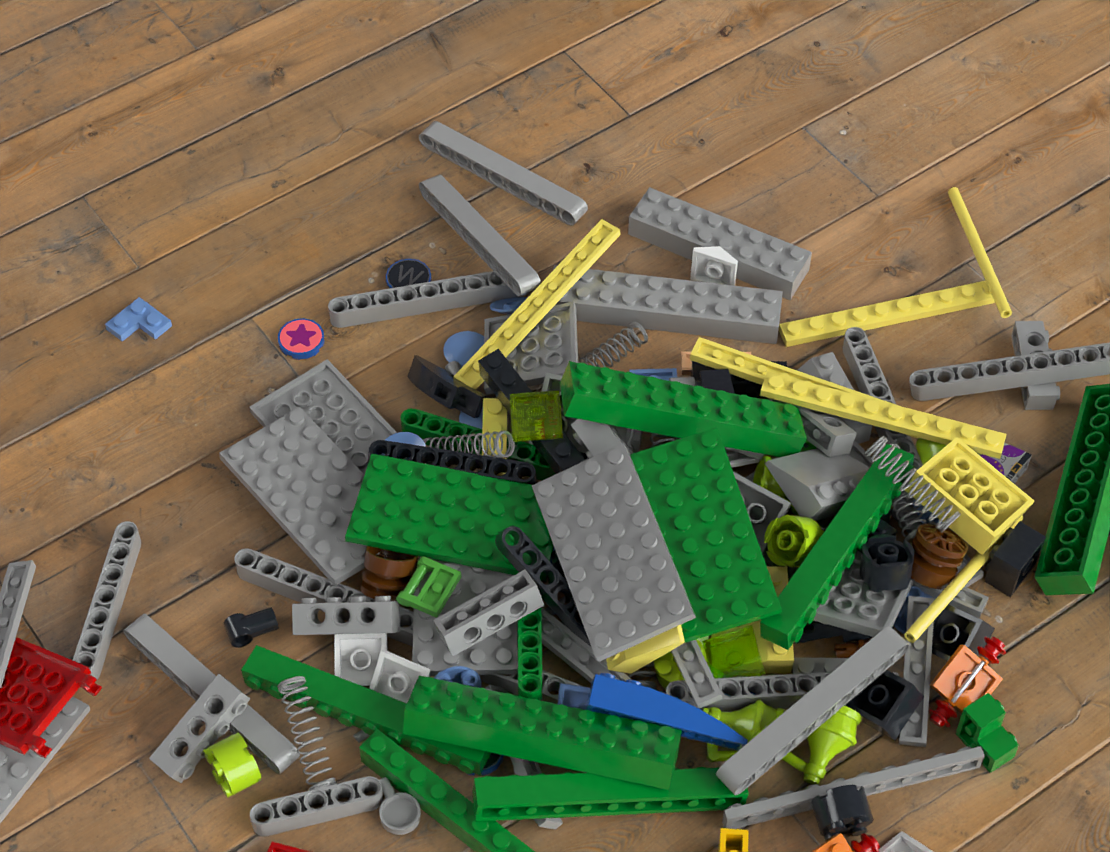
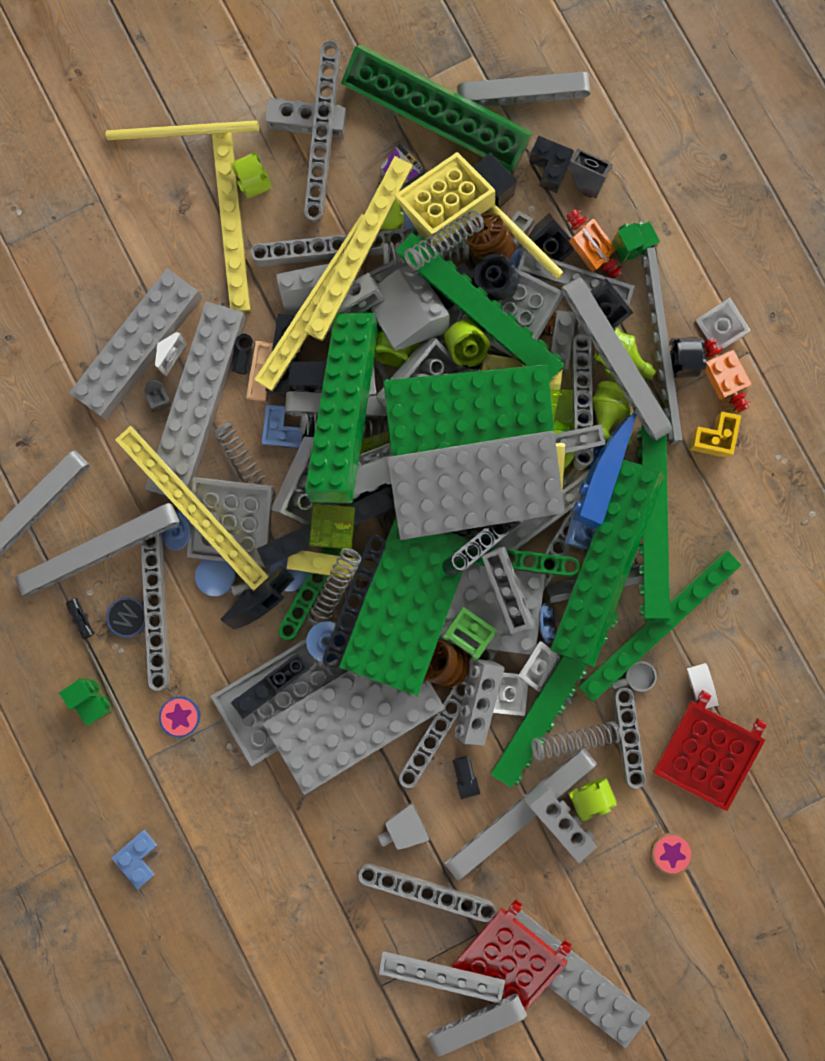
camera: 80 degrees left, 30 degrees up
(185, 568) = (404, 829): none -> light grey torso
(313, 249) = (86, 700): none -> green brick
(342, 407) = (270, 686): none -> black slope
(389, 243) = (80, 618): none -> black pin
(665, 267) = (156, 395): none -> dark grey plate
(741, 339) = (243, 356): none -> black piece
(945, 318) = (251, 175): none -> lime brick
(1063, 631) = (554, 159): none -> black brick
(1065, 671) = (589, 172): none -> black slope

